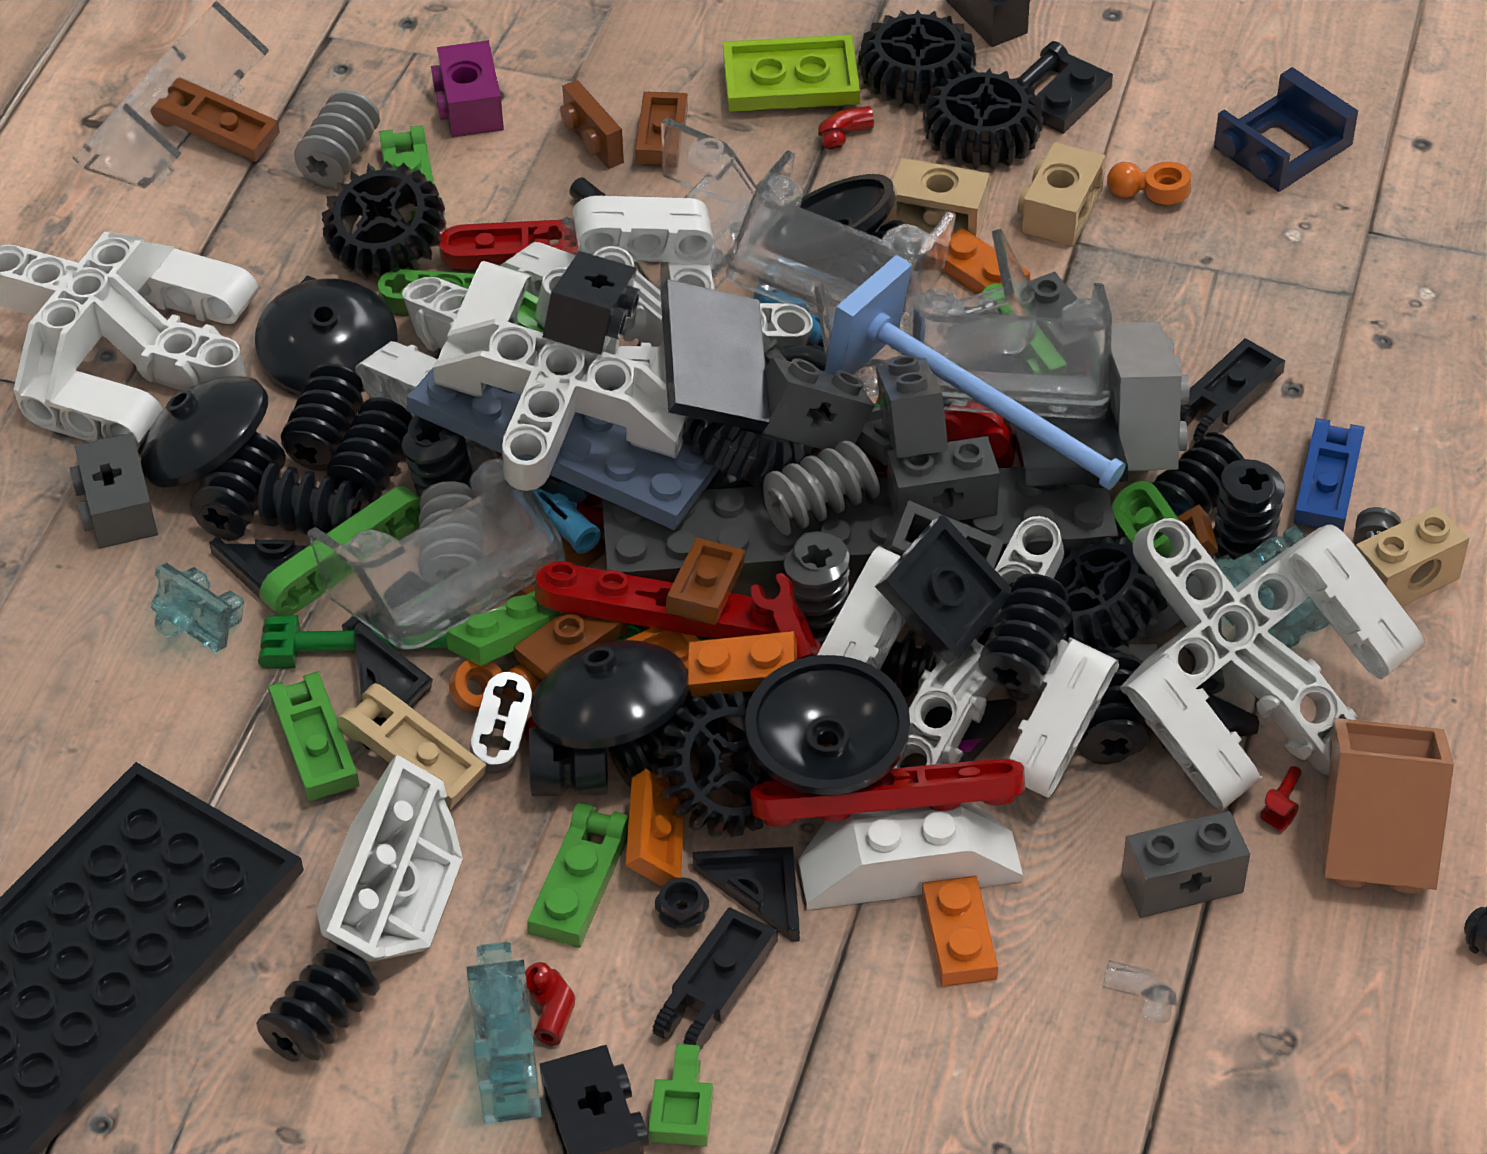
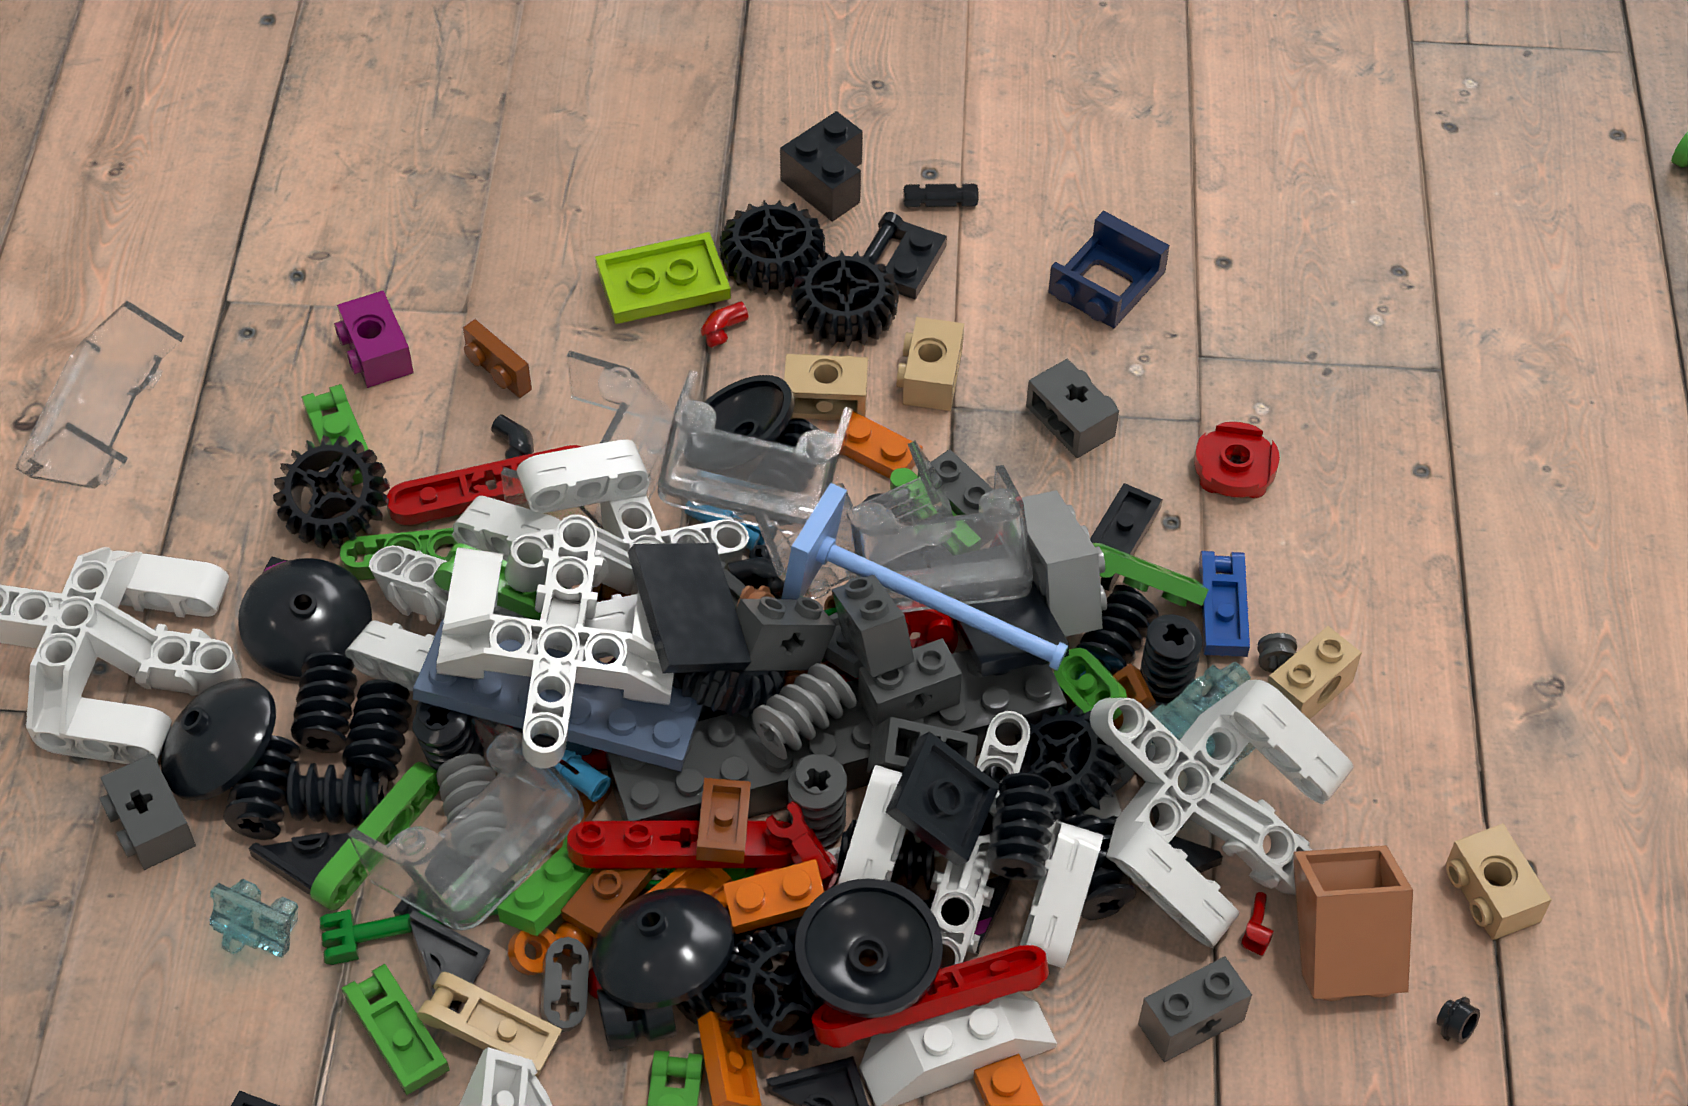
camera: 15 degrees left, 5 degrees up
(216, 119) = (144, 407): dark orange plate -> none
(336, 138) = (264, 411): light grey piece -> none
(591, 303) = (574, 583): black brick -> none
(653, 110) = (556, 338): dark orange plate -> none
(1117, 35) = (941, 195): none -> black axle
(1163, 182) = (1017, 338): orange plate -> none
(1208, 258) = (1072, 407): none -> dark grey brick
(1239, 426) = (1142, 574): none -> bright green plate
(1389, 357) = (1233, 479): none -> red plate

